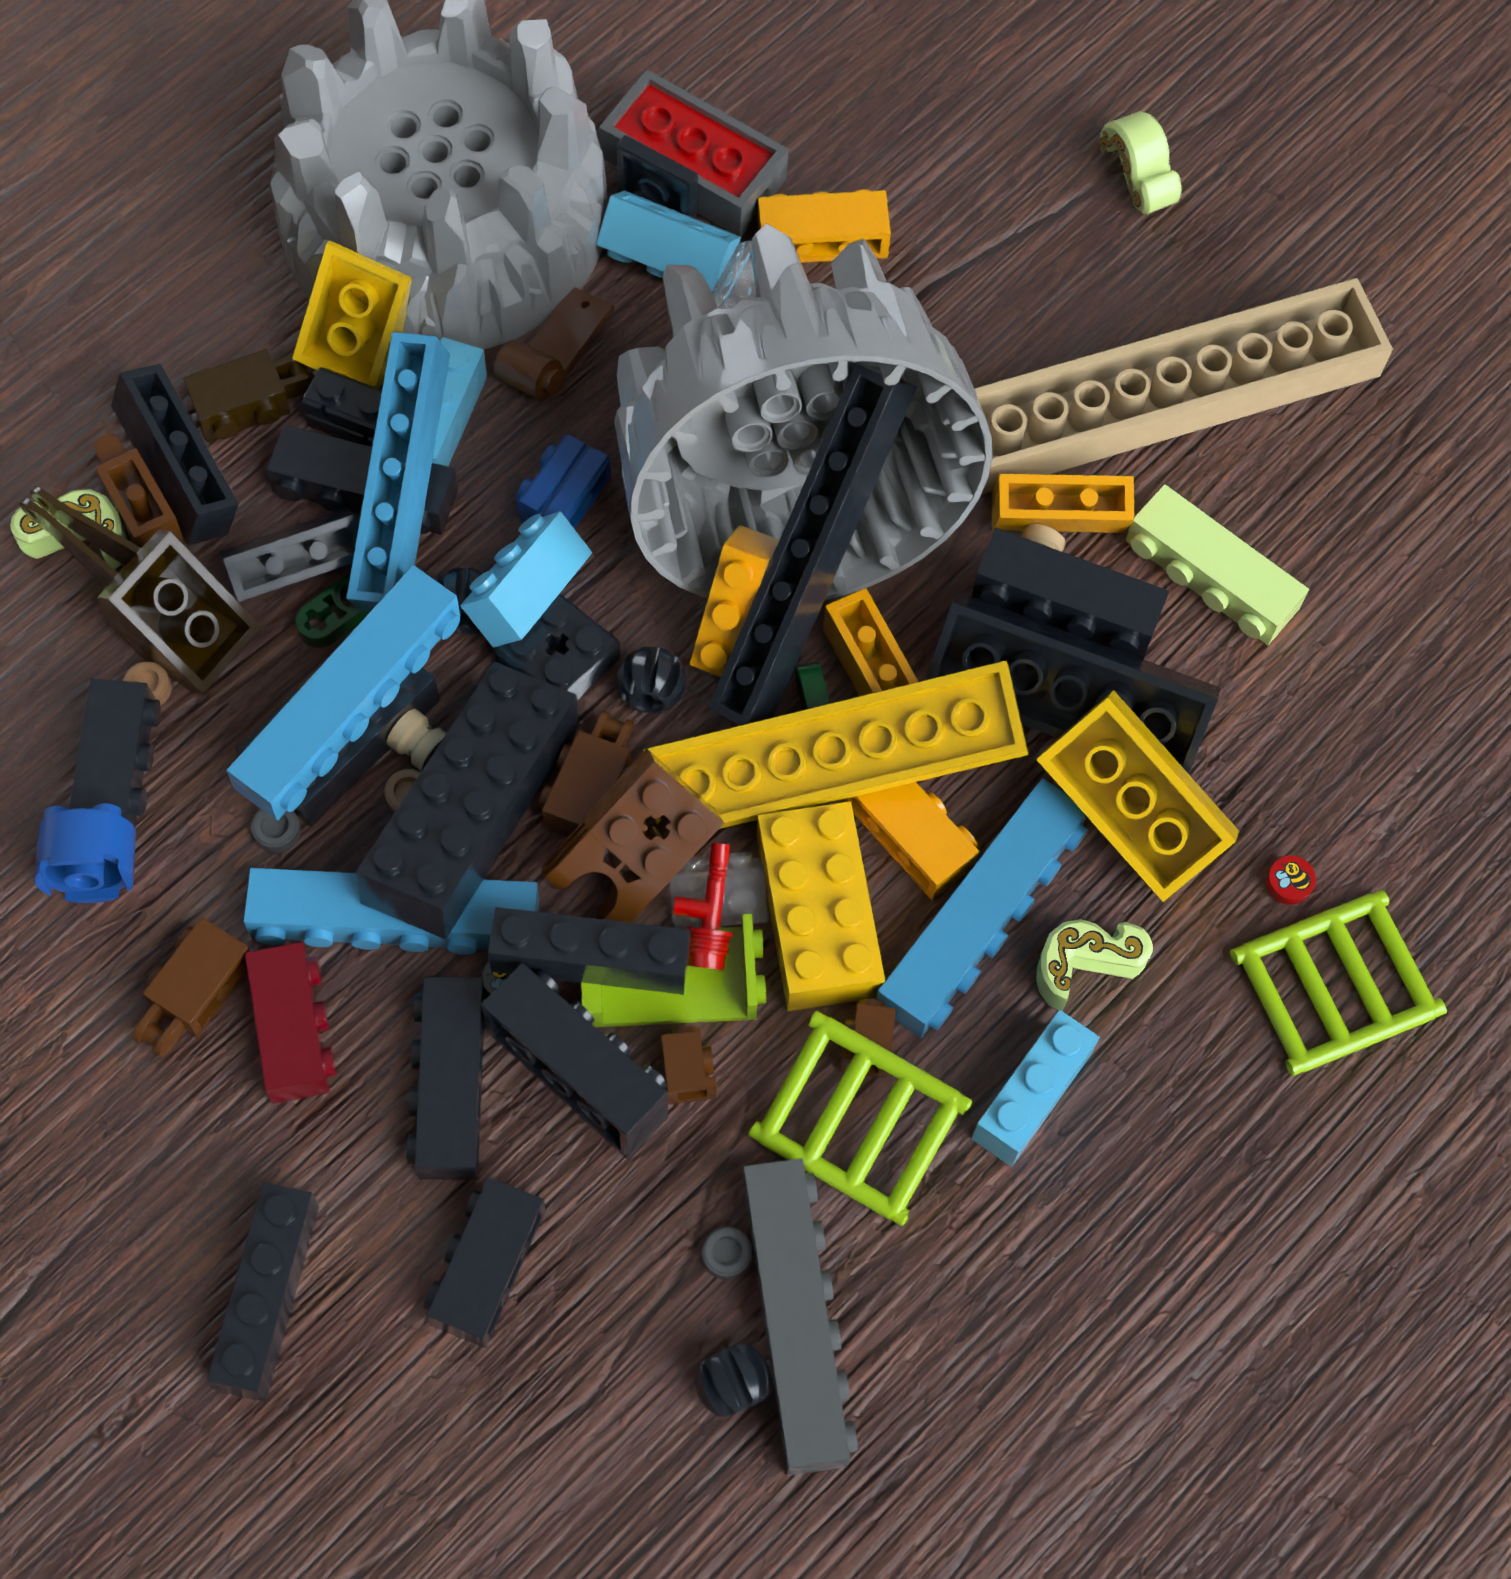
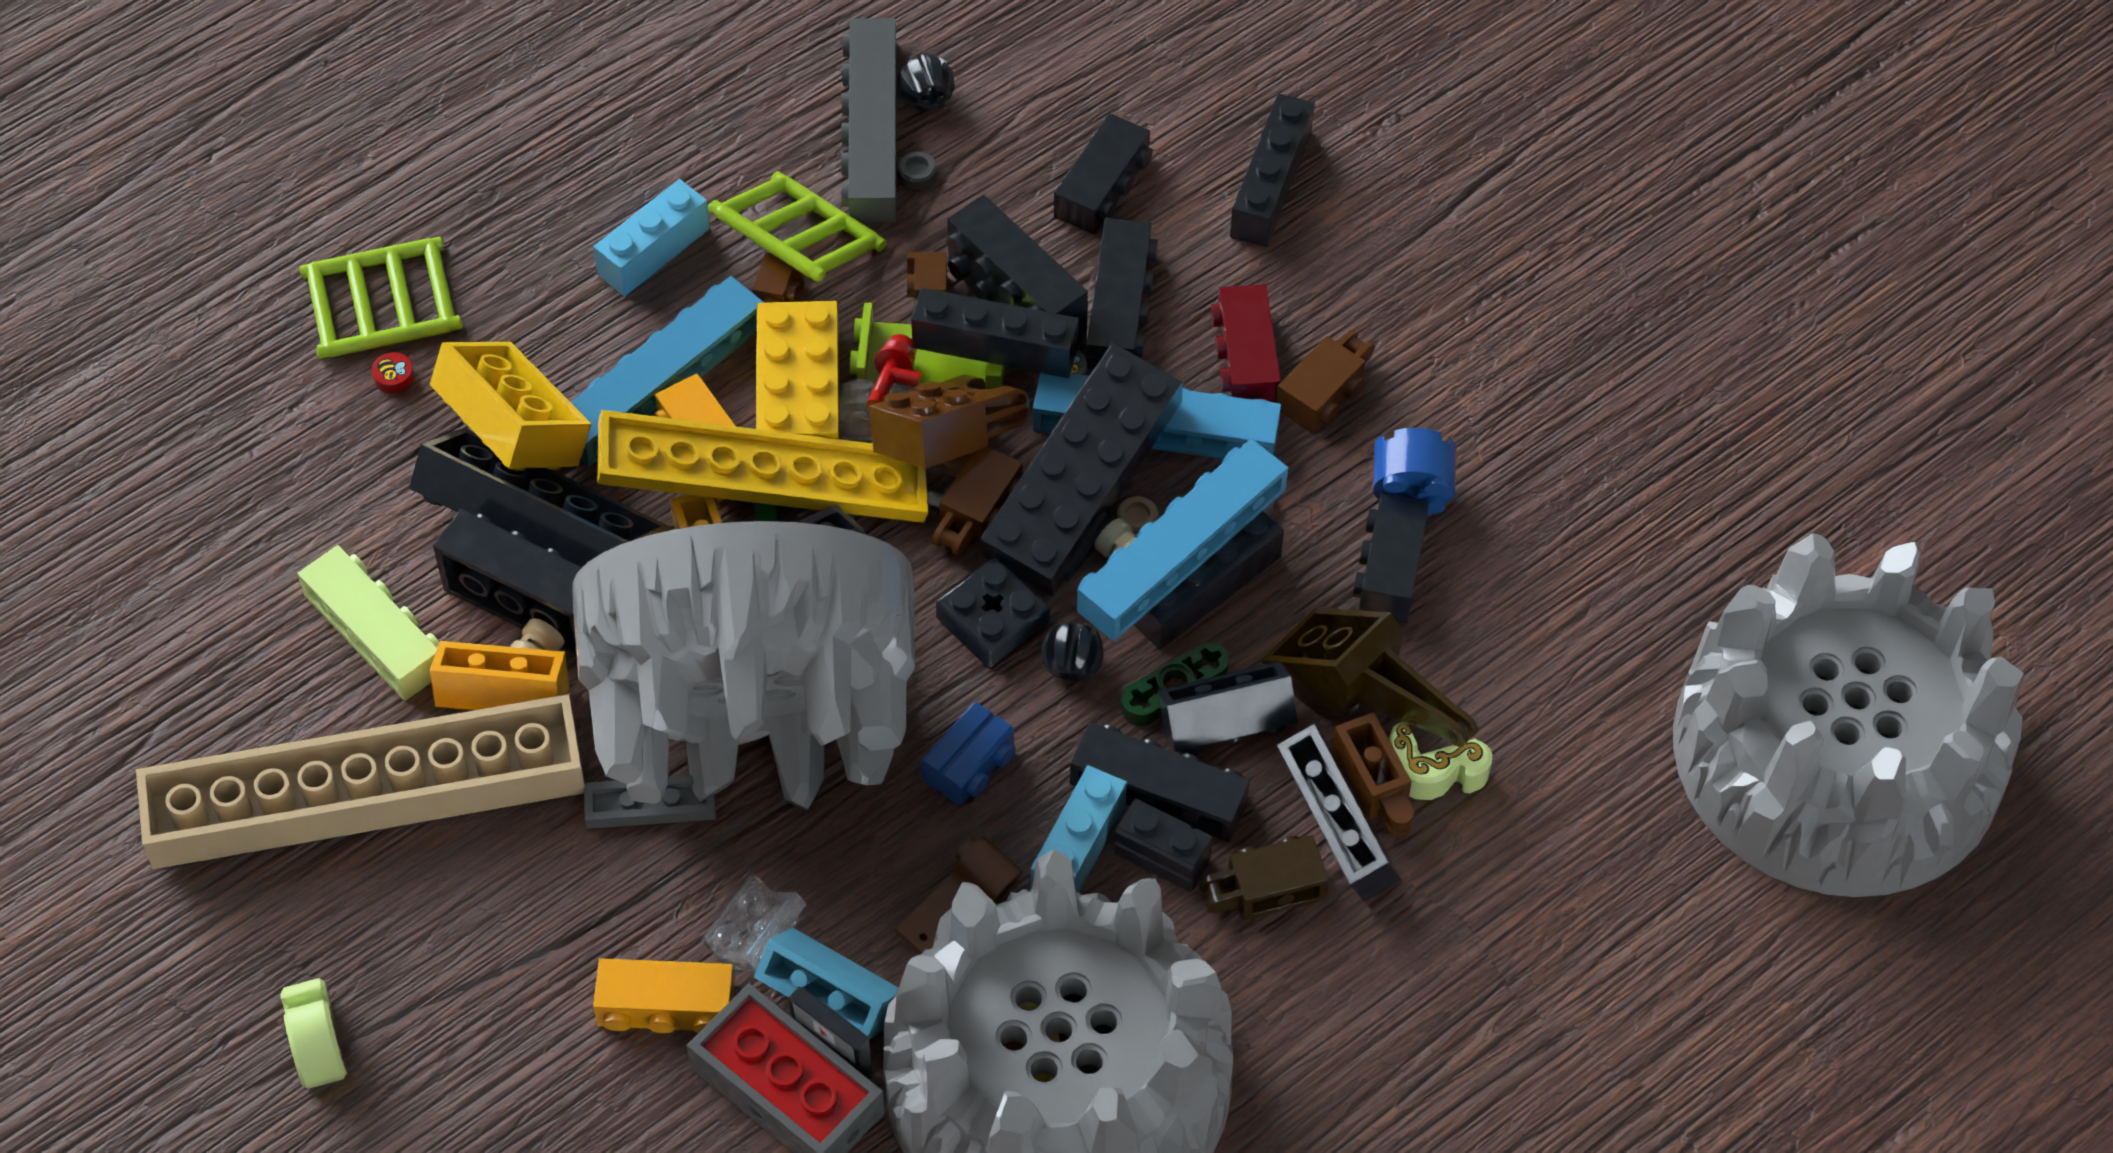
camera: 170 degrees left, 10 degrees down
(352, 315) = (1184, 897): yellow slope -> none
(398, 467) = (1121, 725): dark azure brick -> none
(525, 578) = (1013, 648): medium azure brick -> none
(651, 680) = (925, 566): black piece -> none
(1089, 948) = (581, 331): yellowish green animal -> none

